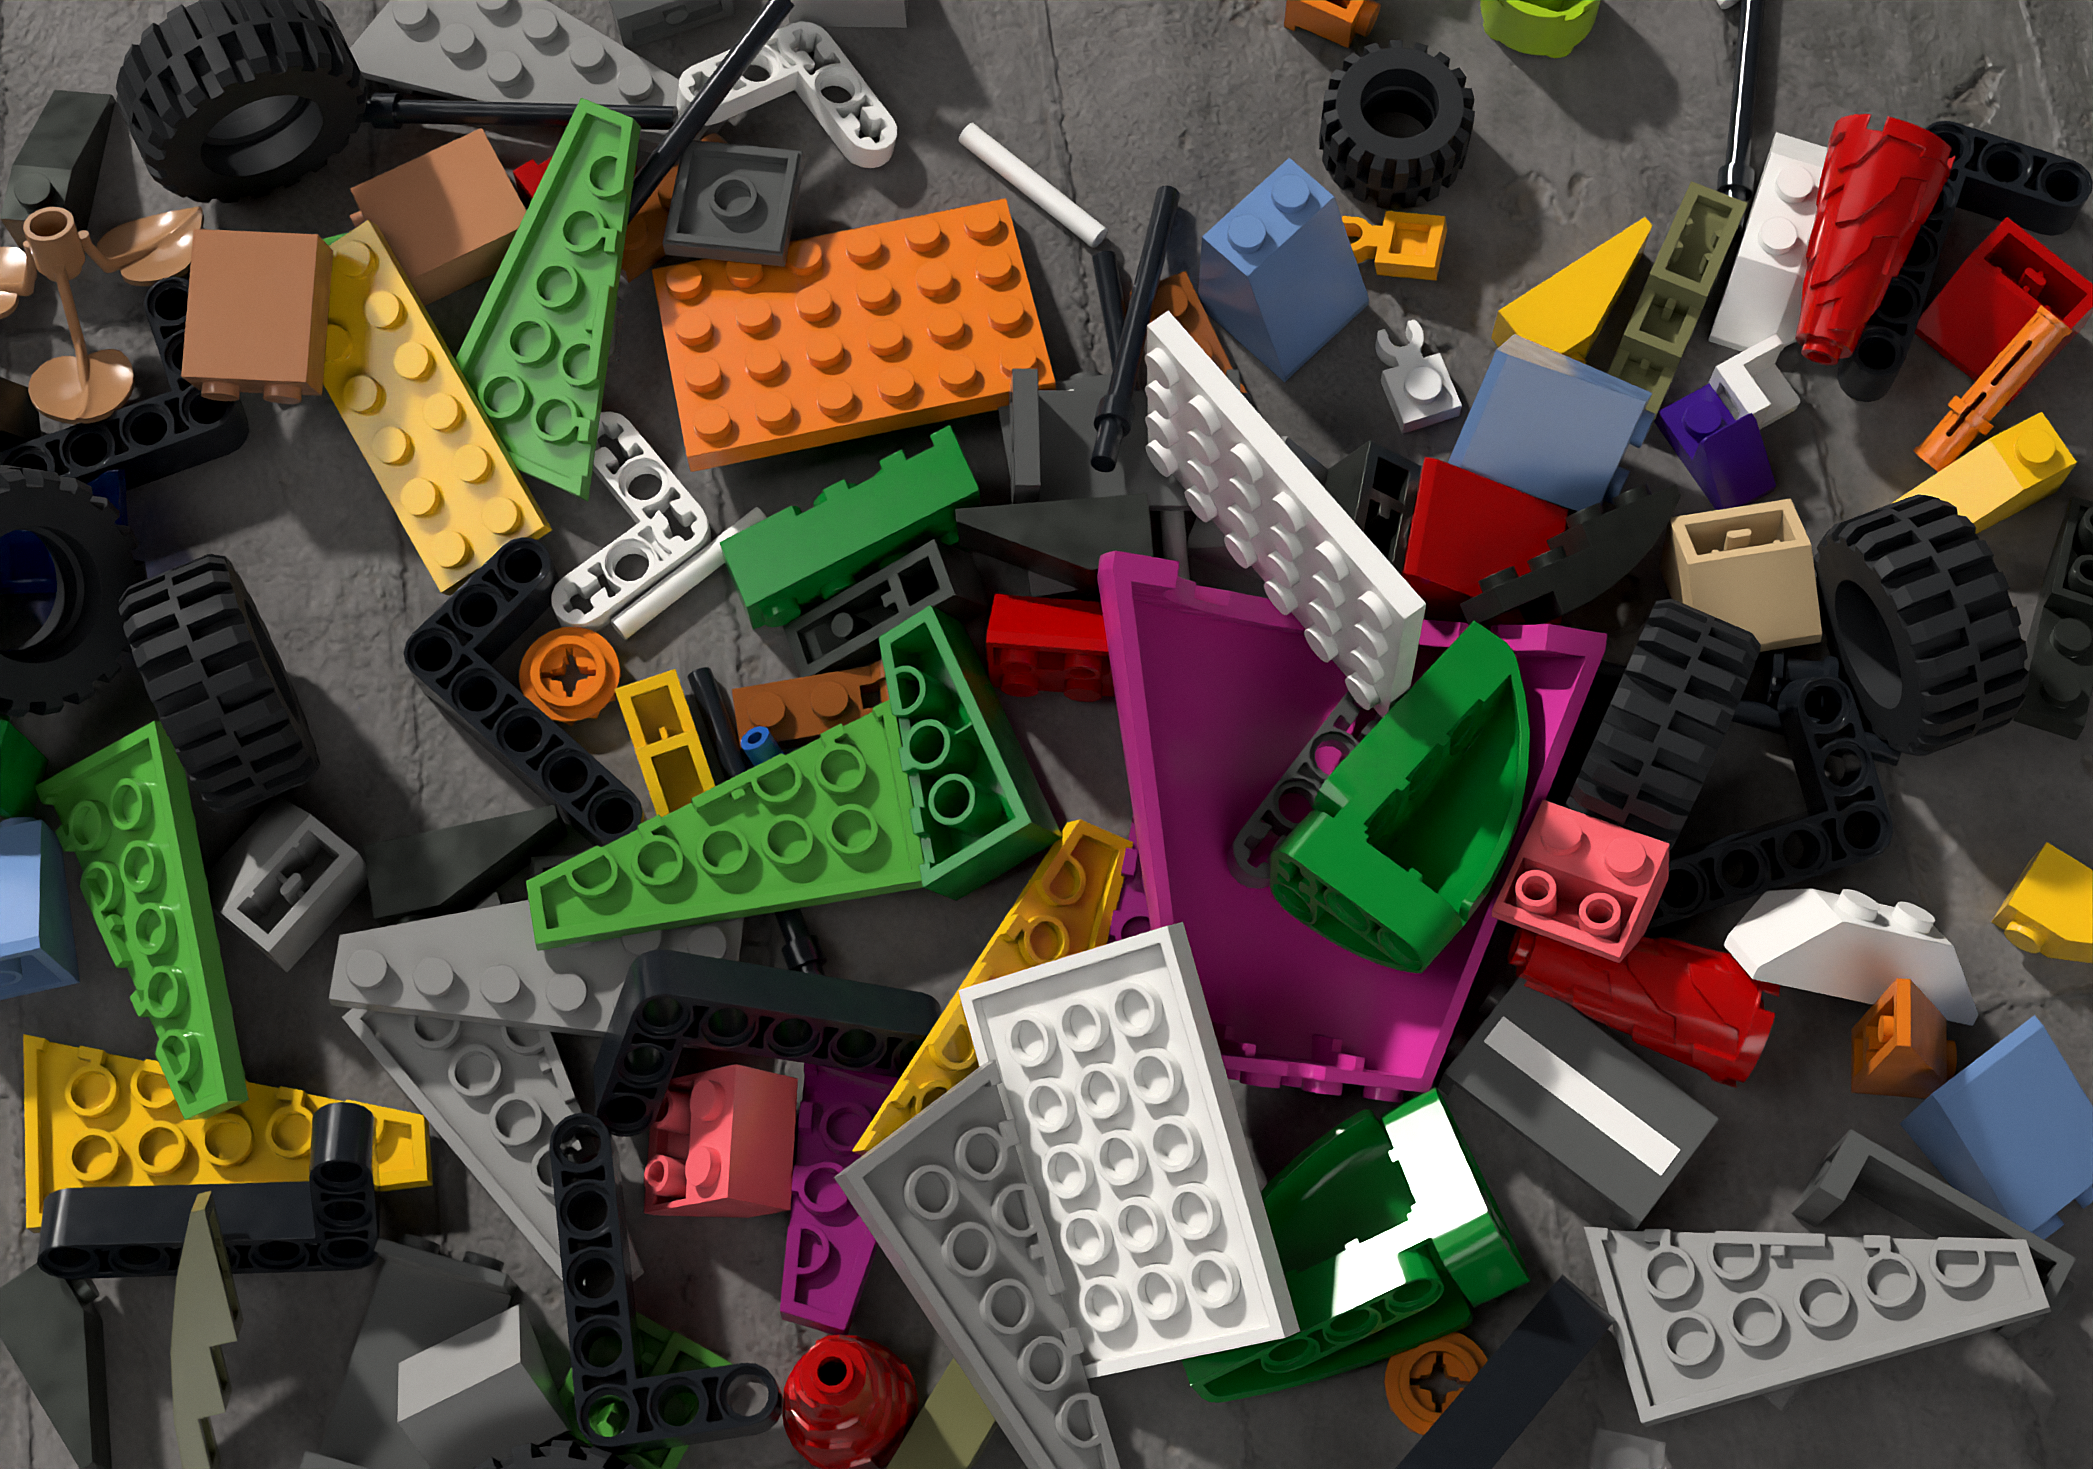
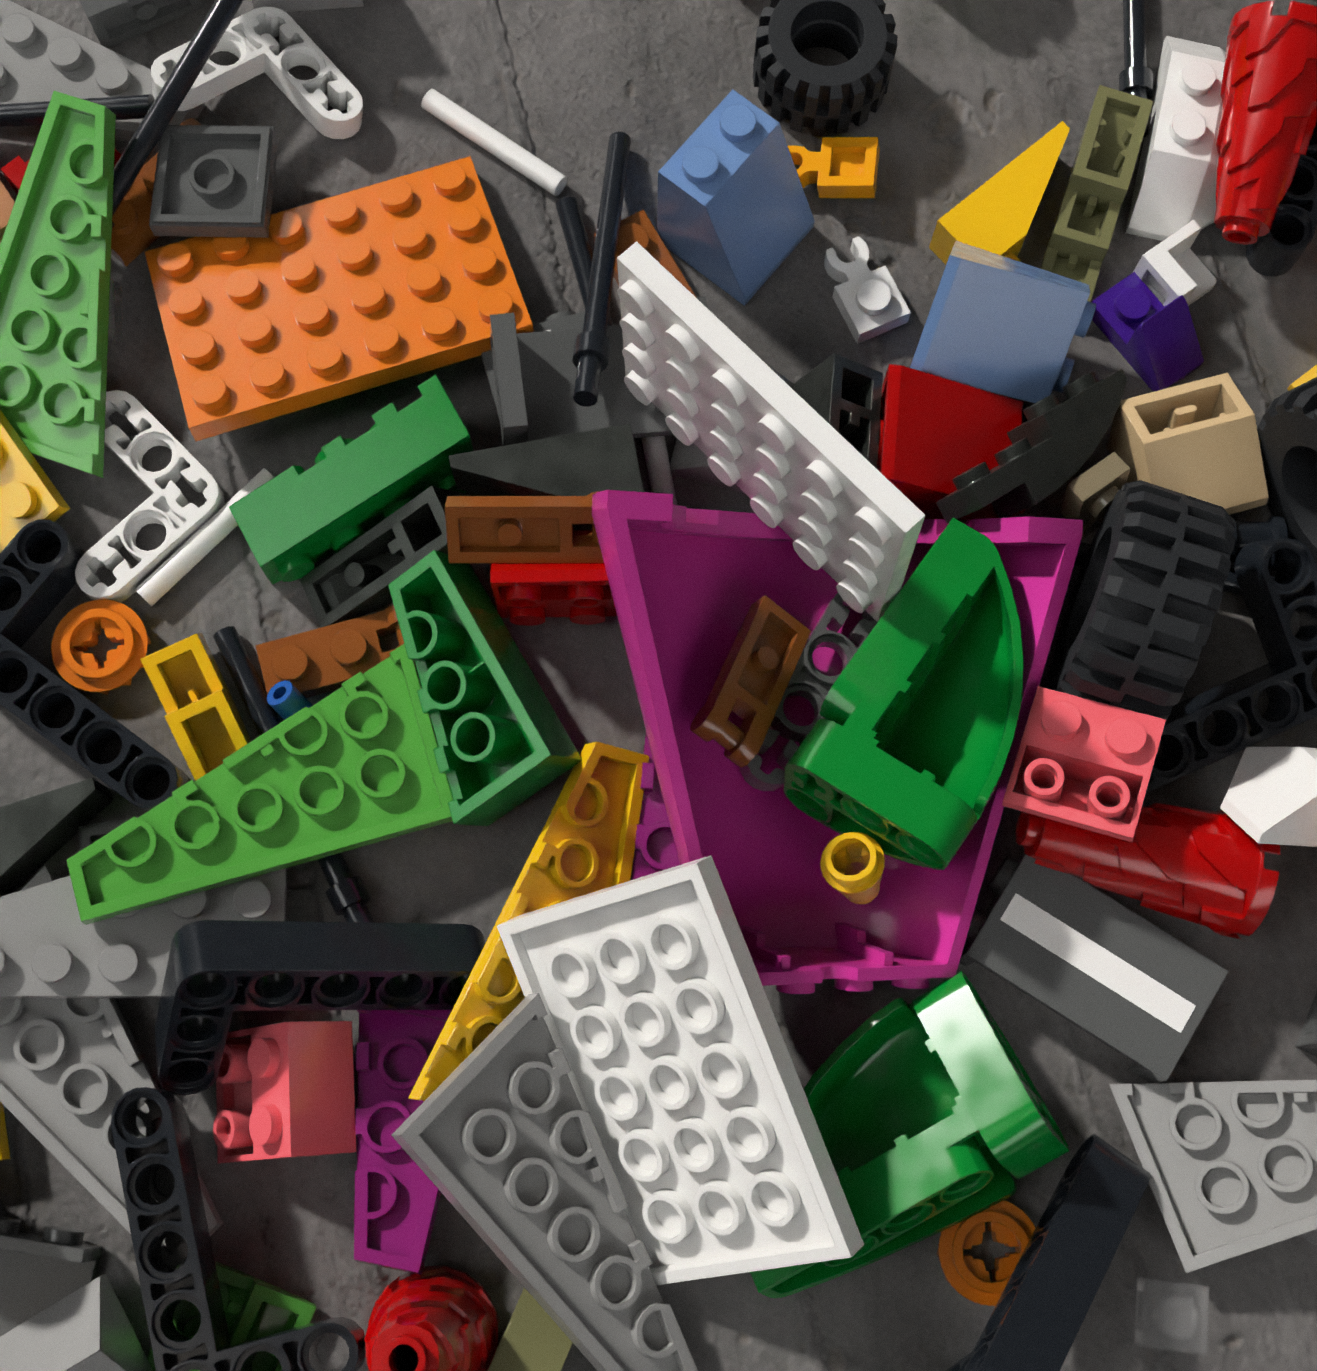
camera: 10 degrees left, 5 degrees up
(1022, 591) = (520, 529): none -> dark orange plate
(1248, 769) = (752, 681): none -> dark orange plate
(1334, 969) = (854, 866): none -> yellow cone
(1627, 611) = (1094, 491): none -> dark tan plate

